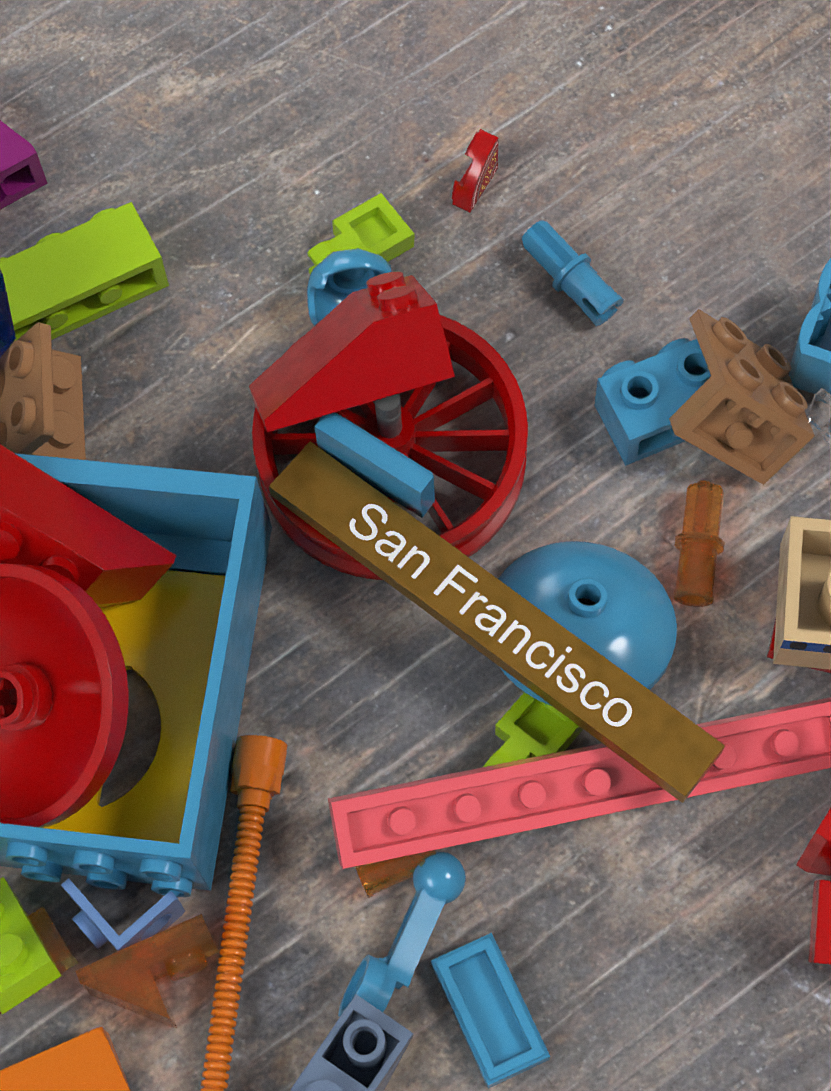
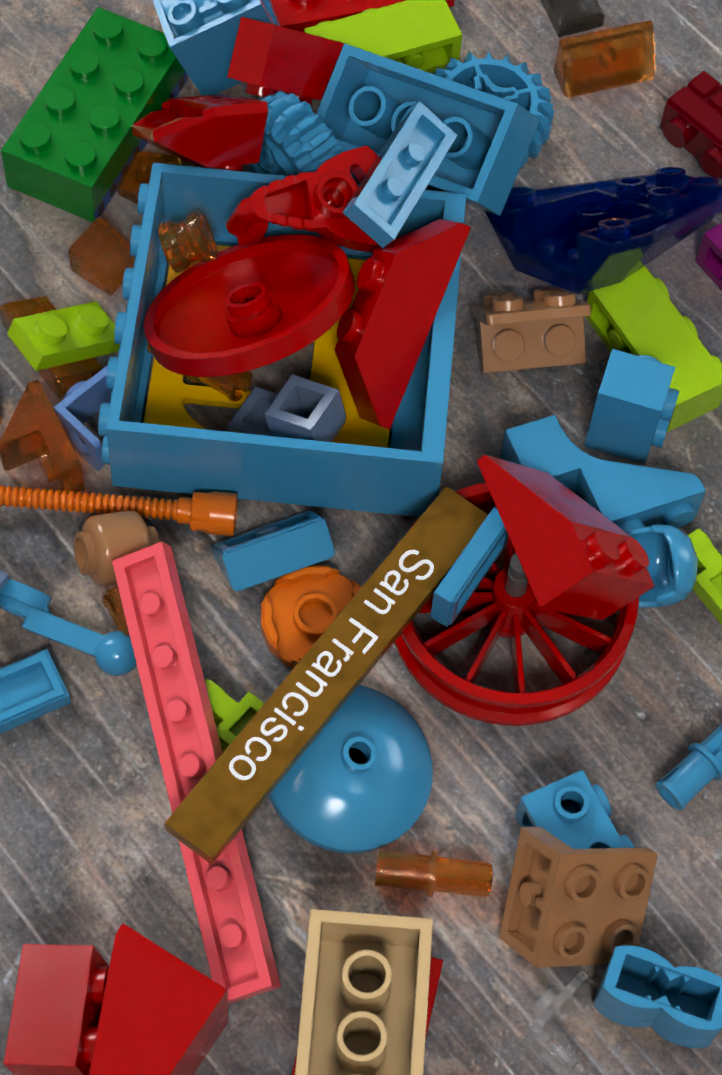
camera: 80 degrees right, 5 degrees down
(158, 300) = (632, 406): none -> dark azure brick
(168, 659) = (298, 411): none -> sand blue brick
(215, 398) = (620, 491): none -> dark azure arch
(304, 879) = (109, 538): none -> medium nougat head
(307, 701) = (274, 550): none -> dark azure slope
(393, 660) = (302, 609): none -> orange tile

